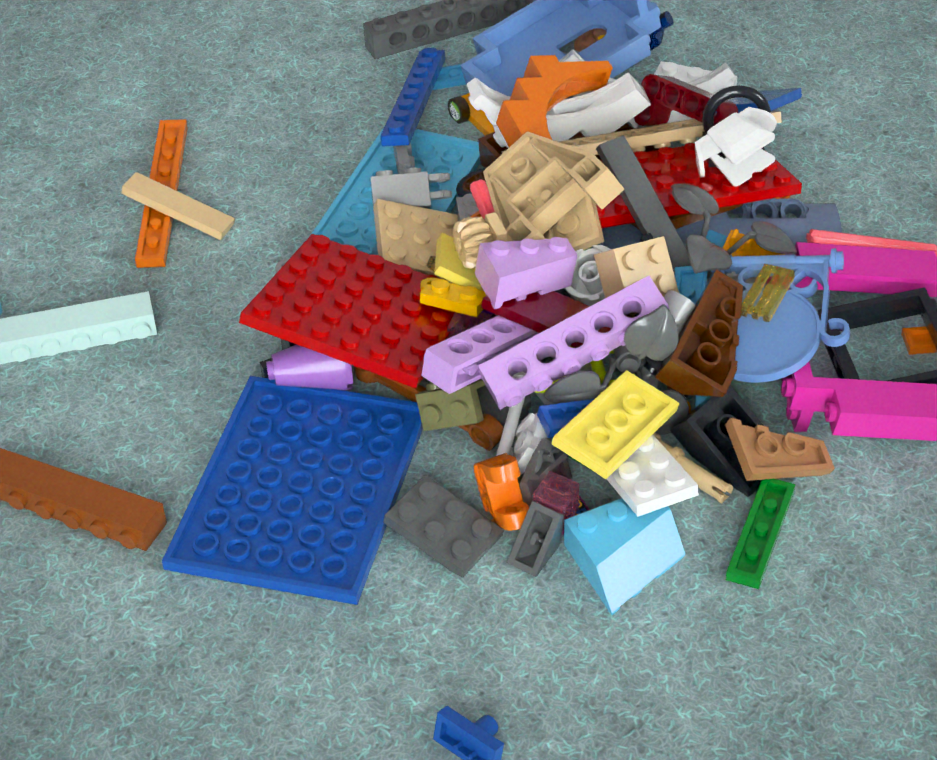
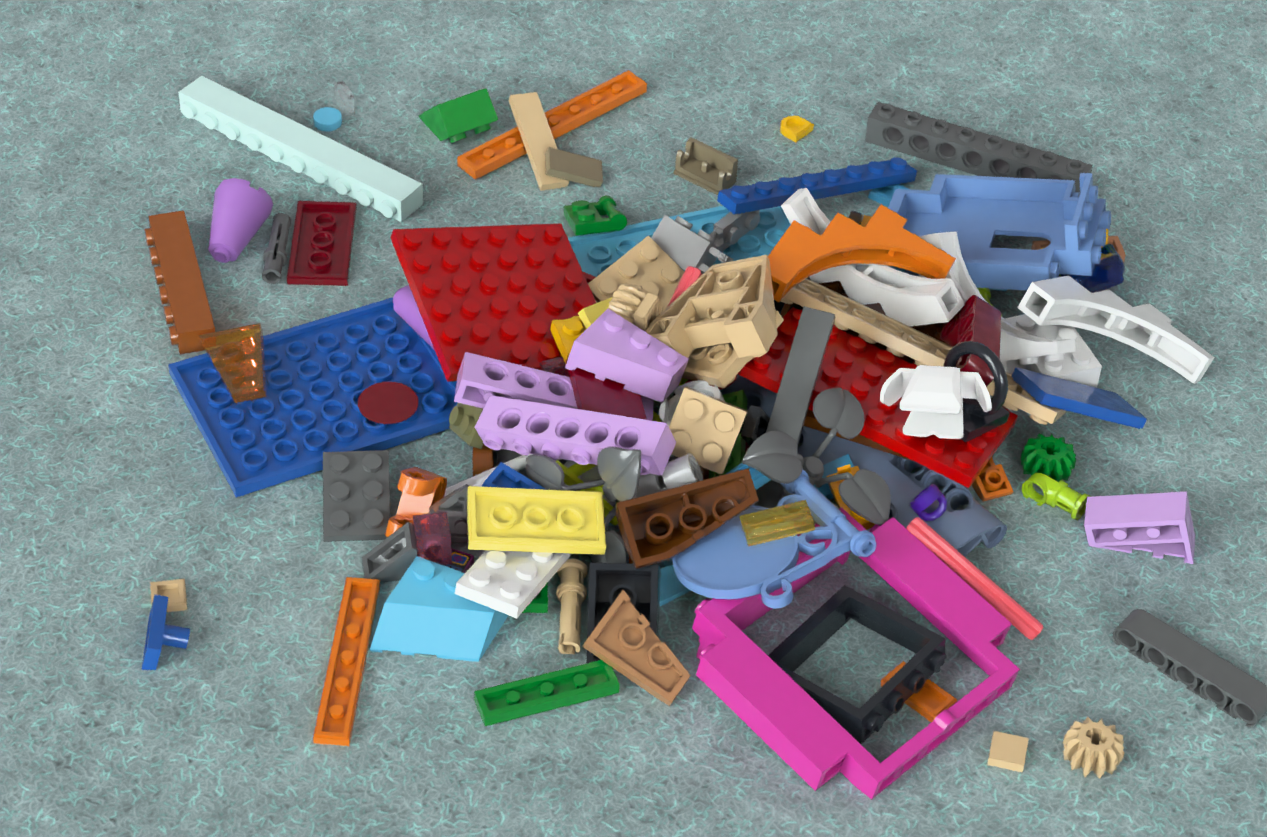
camera: 45 degrees right, 0 degrees up
(44, 421) = (236, 217): none -> medium lavender cone
(90, 232) = (461, 115): none -> green slope
(108, 425) = (272, 267): none -> dark grey pin
(126, 391) = (322, 243): none -> dark red tile
(219, 509) = (239, 360): none -> clear orange wing
(228, 205) = (573, 167): none -> dark tan tile
(294, 225) = (586, 217): none -> green plate
(312, 141) = (706, 166): none -> dark tan hinge
(320, 81) = (795, 127): none -> yellow tile
(363, 449) = (388, 402): none -> dark red sticker
(423, 711) = (174, 590): none -> tan tile
(613, 635) = (347, 662): none -> orange tile
(688, 47) = (1142, 326): none -> white arch
(788, 151) = (1048, 457): none -> green gear
(795, 219) = (925, 499): none -> dark purple tile
(821, 168) = (1055, 494): none -> lime connector
(890, 144) = (1142, 522): none -> lavender wedge

